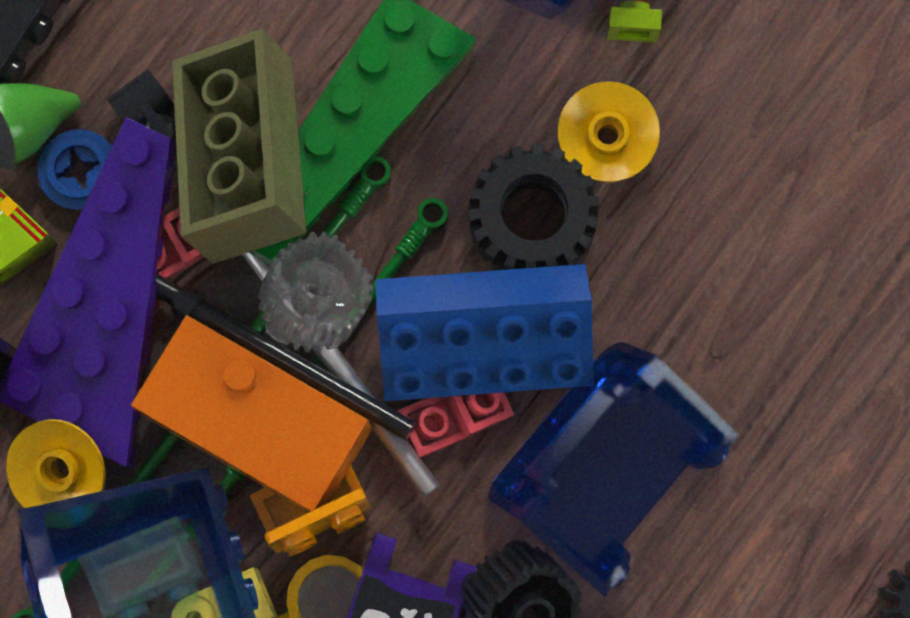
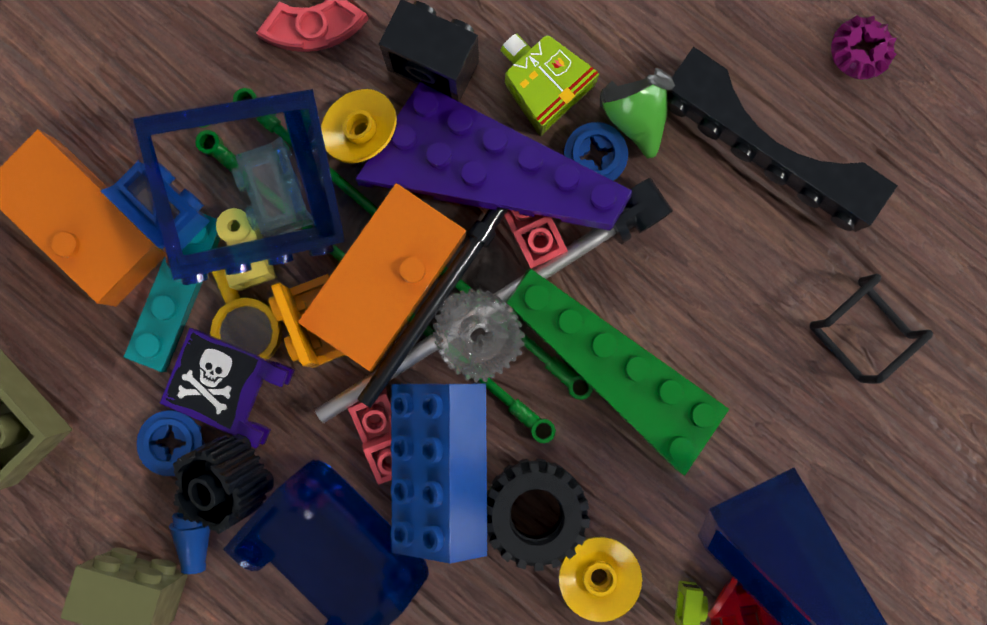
camera: 90 degrees right, 5 degrees up
(237, 147) = (600, 278): olive brick -> none

